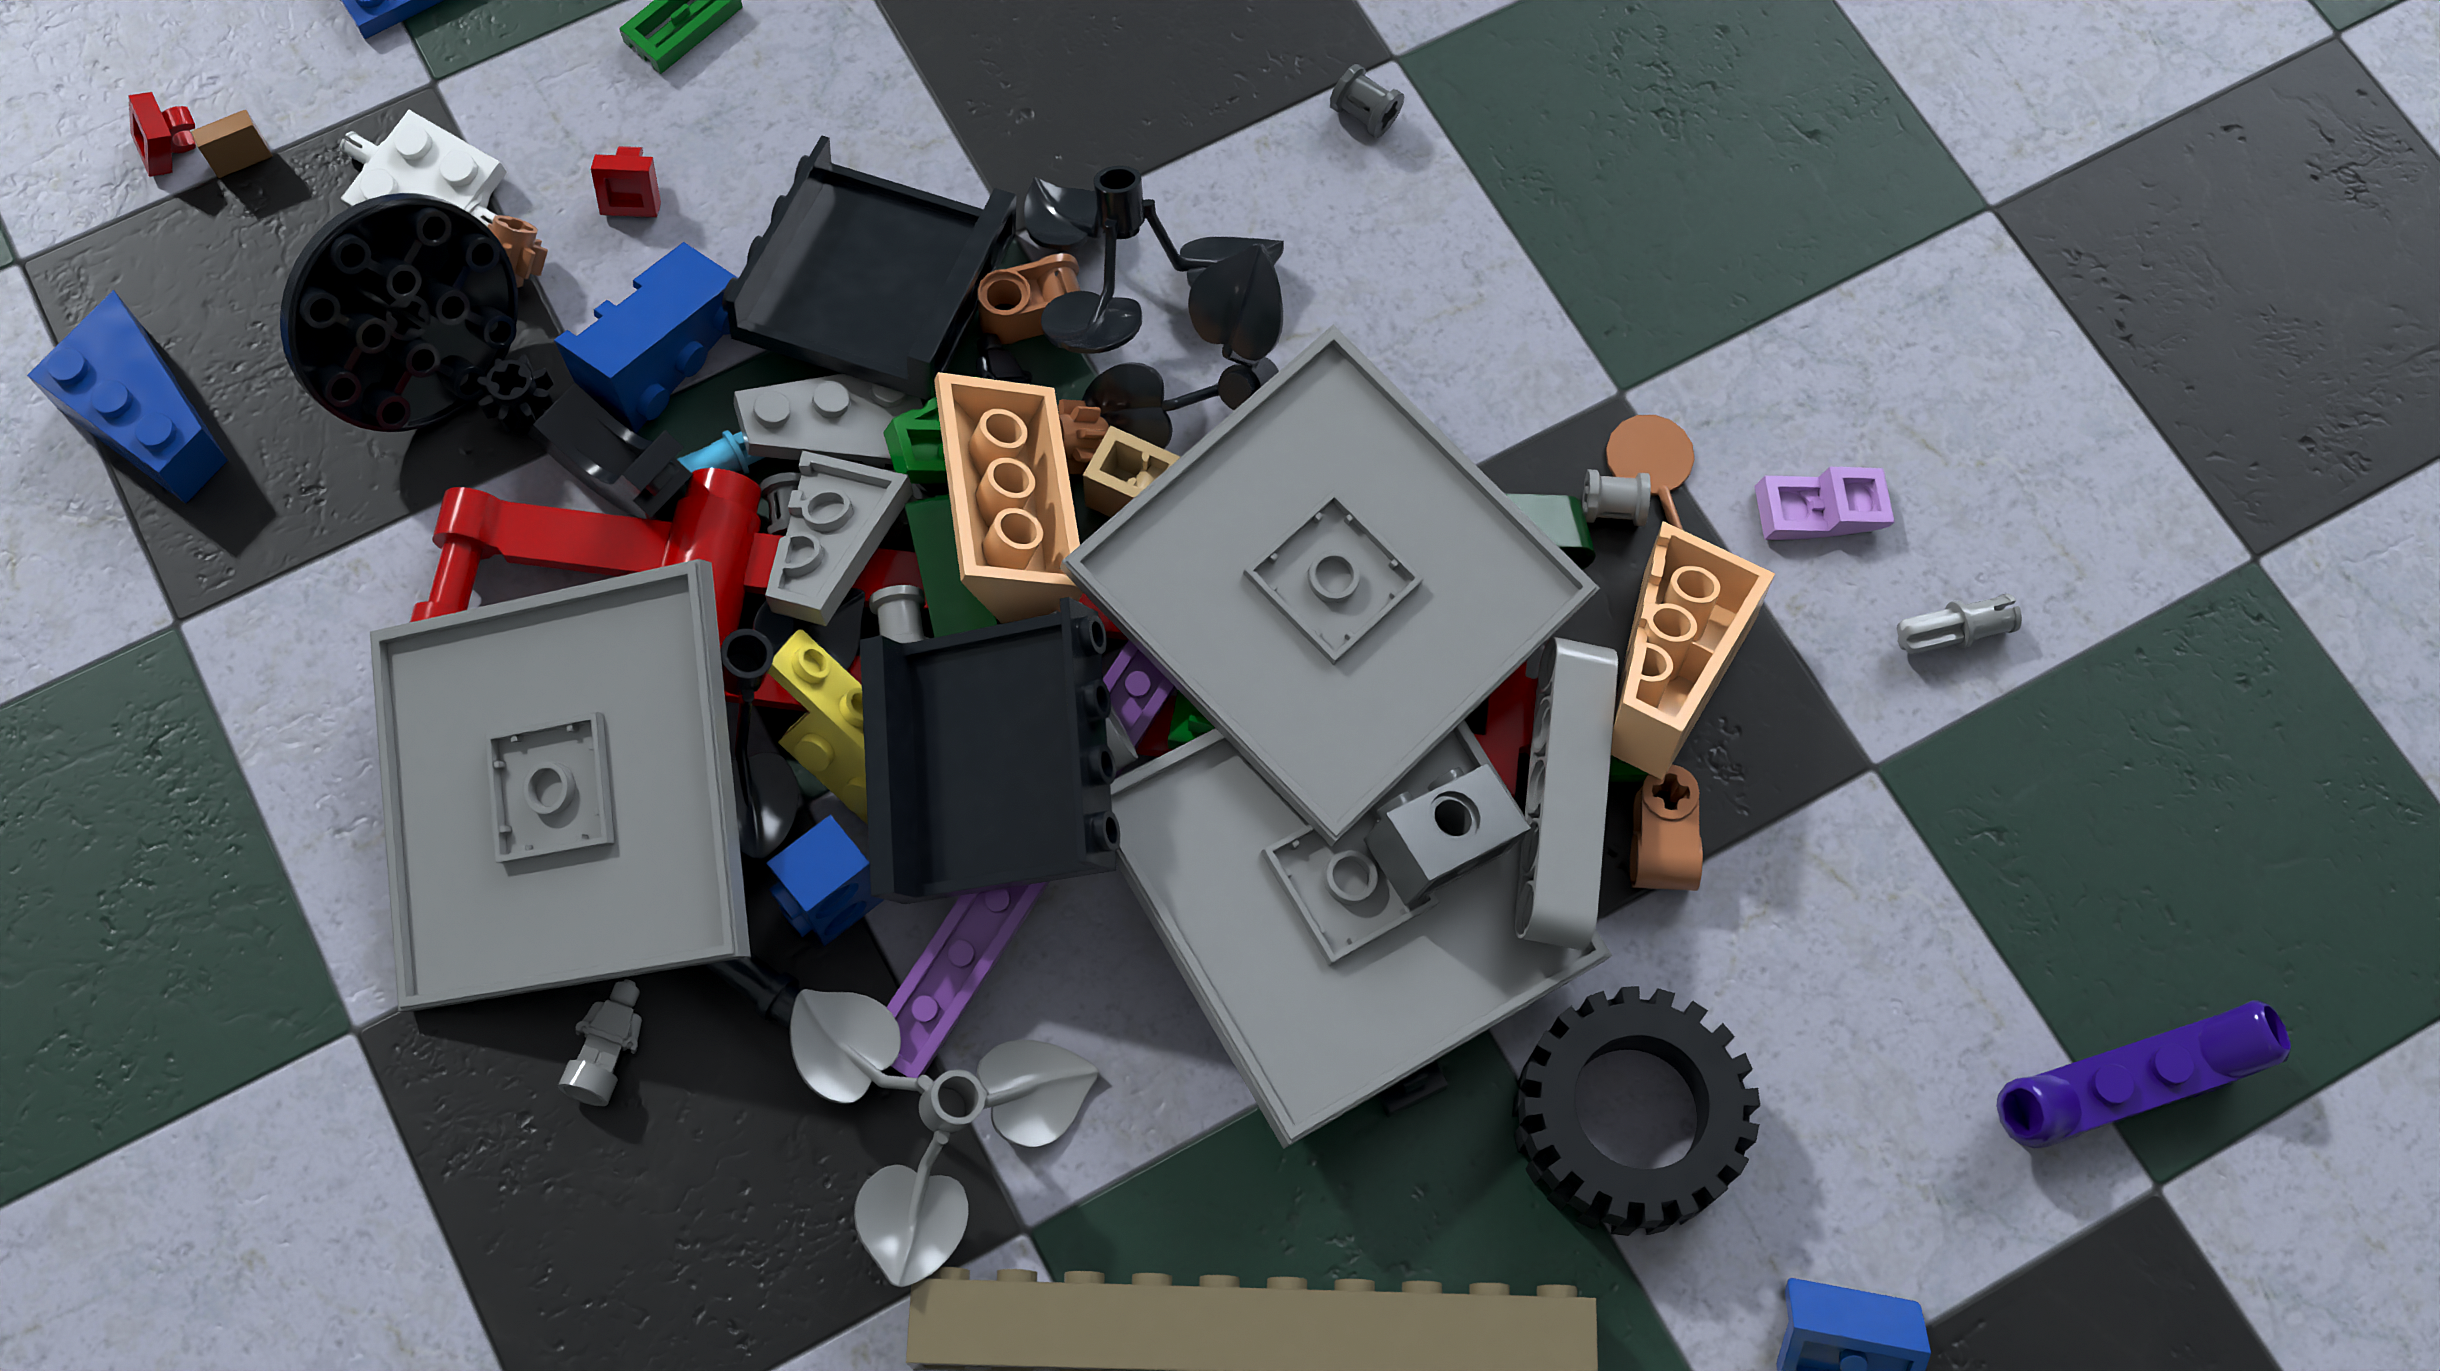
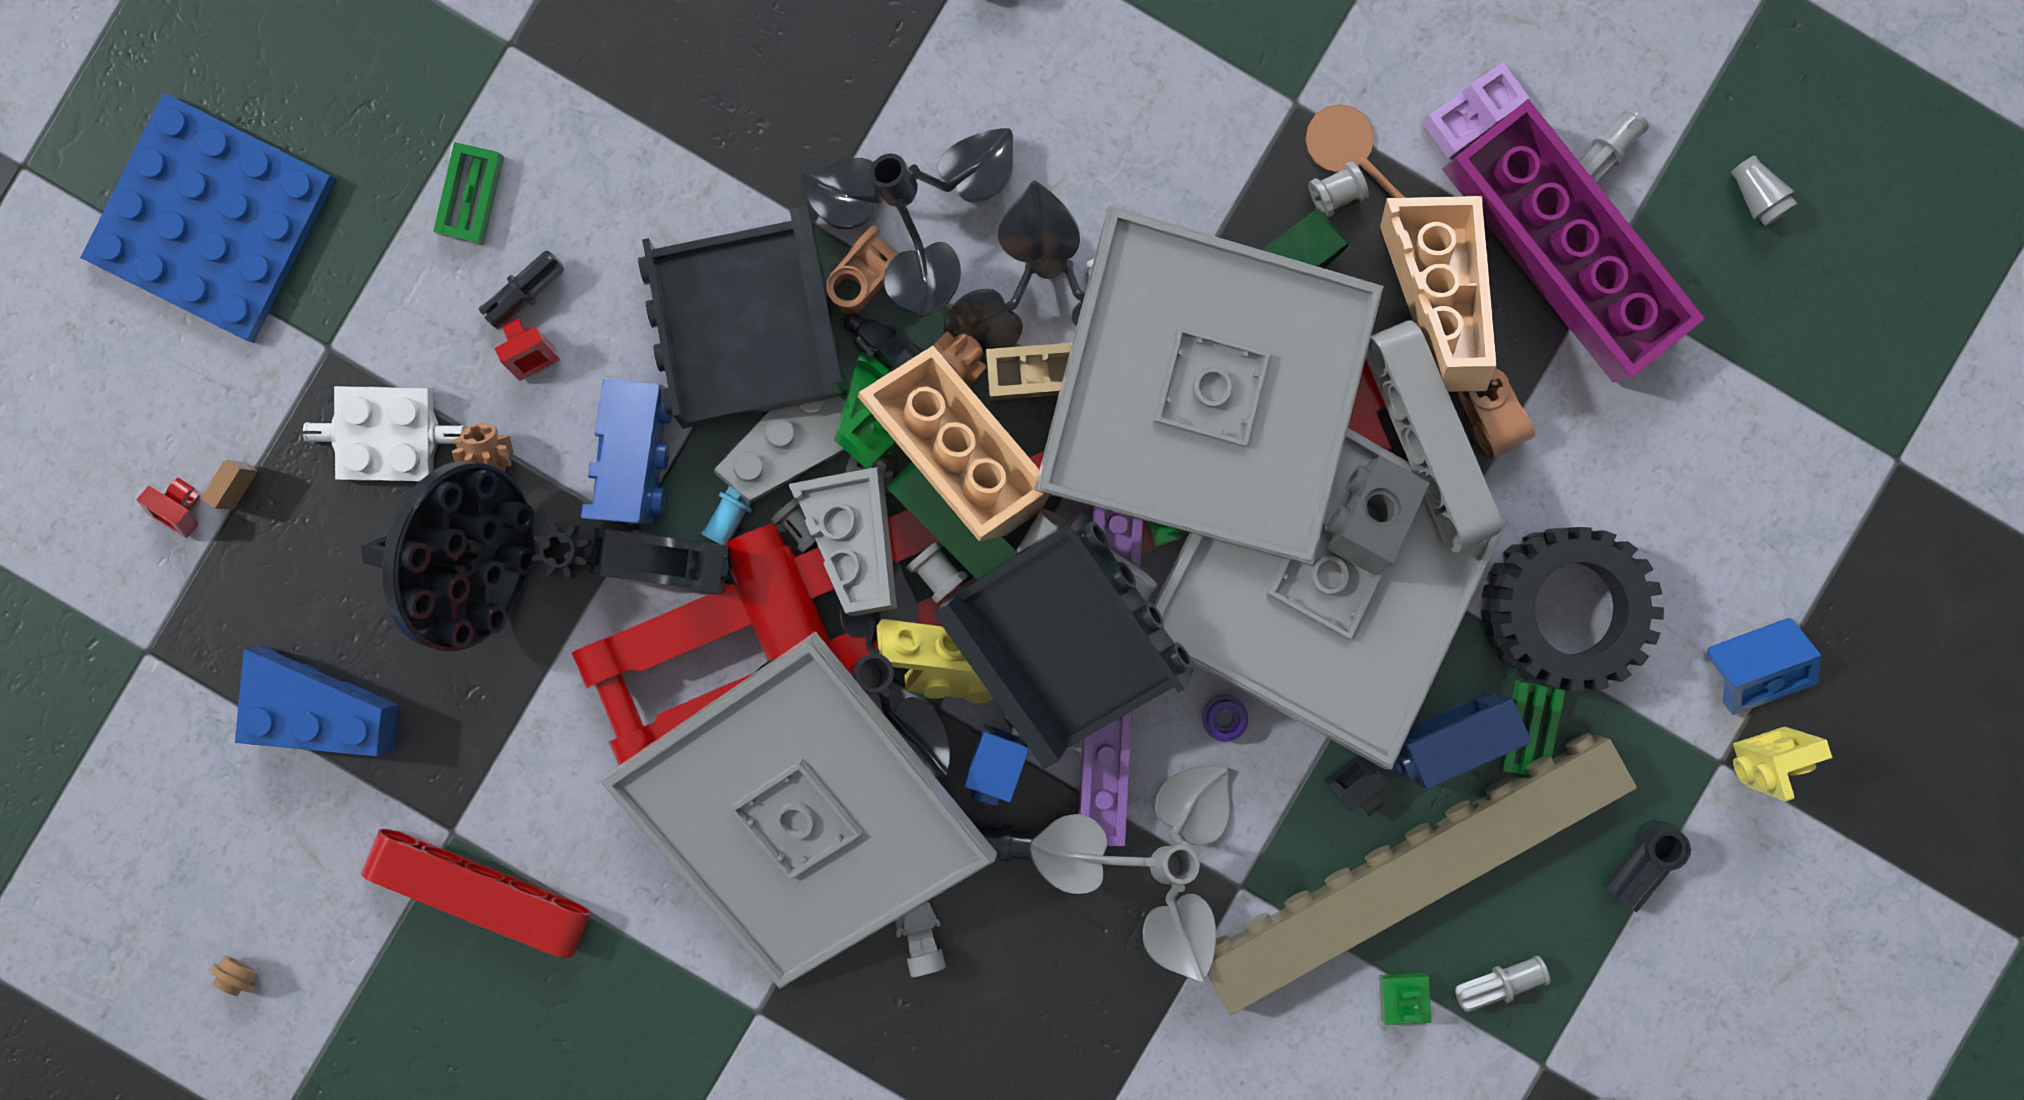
camera: 30 degrees left, 20 degrees up
(150, 696) = (475, 893): none -> red beam
(666, 127) = (521, 289): none -> black axle
(1130, 987) = (1235, 728): none -> dark purple plate
(1243, 1177) = (1357, 785): none -> black tile
(1398, 1181) = (1461, 739): none -> dark blue window
(1542, 1205) = (1550, 726): none -> green tile
(1862, 695) = (1573, 243): none -> magenta brick
(2129, 771) = (1763, 191): none -> light grey cone
(2143, 1075) = (1889, 371): dark purple plate -> none

